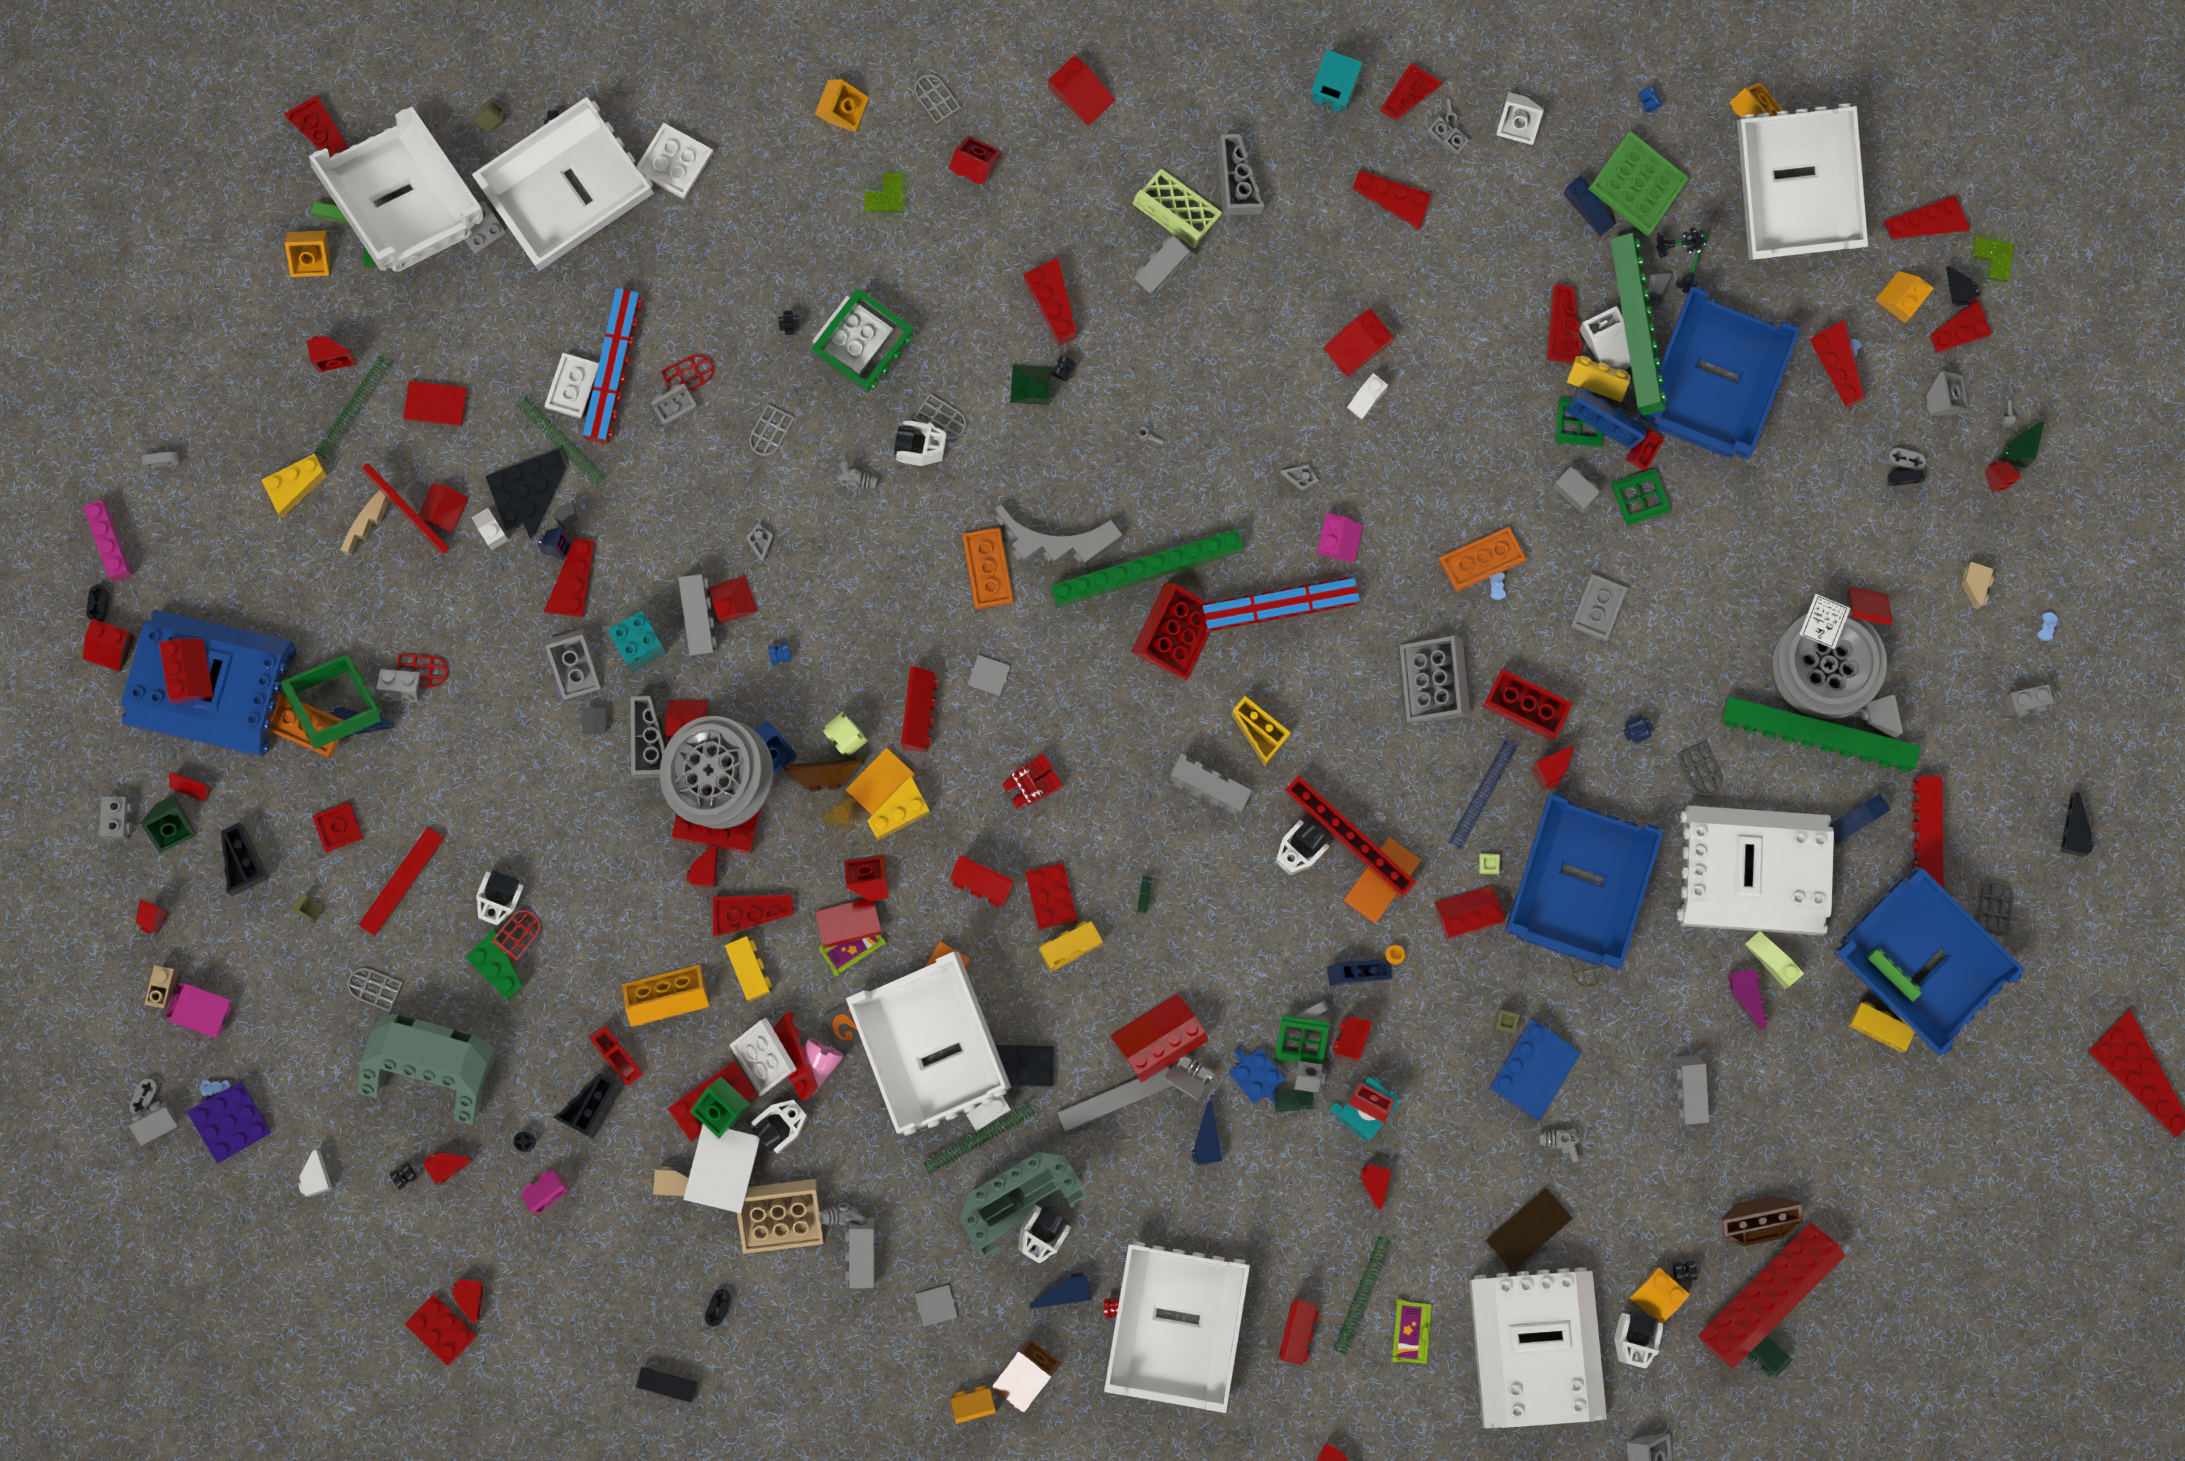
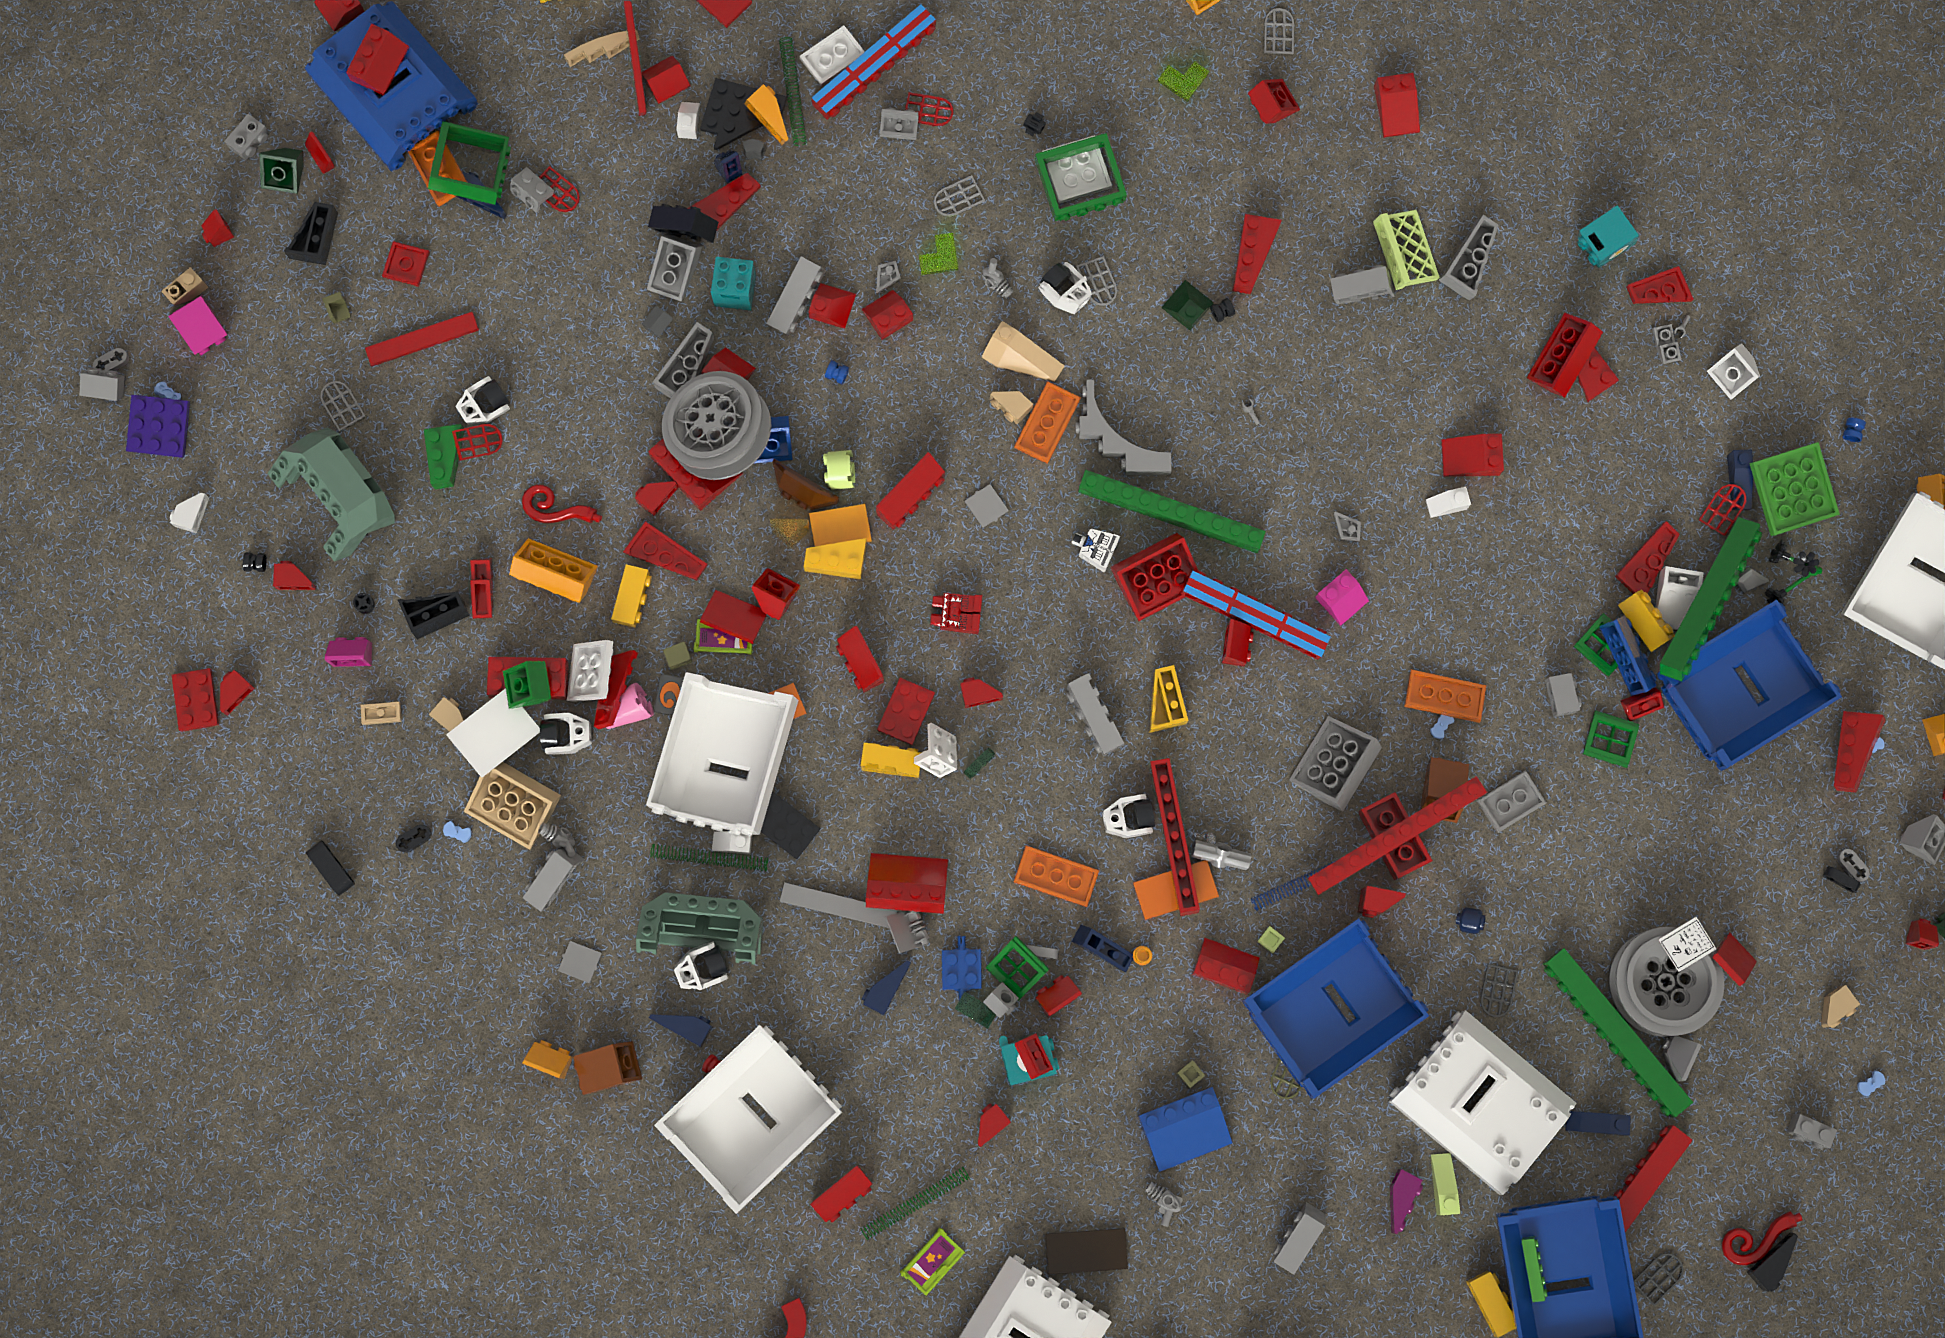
camera: 35 degrees right, 0 degrees up
(552, 620) = (683, 221): none -> black wedge
(554, 473) = (766, 109): none -> light orange slope
(610, 1223) = (381, 713): none -> tan plate
(651, 929) = (578, 511): none -> red plant
(754, 1274) = (457, 832): none -> light blue piece
(785, 572) = (888, 314): none -> red slope
(797, 494) = (942, 261): none -> clear neon green plate
(825, 990) = (677, 655): none -> olive panel
(921, 527) = (1016, 352): none -> tan wedge
(948, 573) = (1012, 403): none -> tan slope
(1099, 836) = (978, 693): none -> red slope
(1107, 644) = (1096, 547): none -> white torso
(1109, 910) = (941, 753): none -> white bracket
(1276, 941) = (1056, 876): none -> orange tile
(1281, 639) = (1237, 643): none -> red slope
(1372, 204) = (1565, 354): none -> red slope
(1398, 824) = (1220, 855): none -> light grey piece
(1530, 703) = (1397, 835): none -> red brick
(1539, 637) = (1440, 779): none -> dark orange slope
(1598, 245) = (1716, 510): none -> red window
(2058, 796) = (1778, 1226): none -> red plant

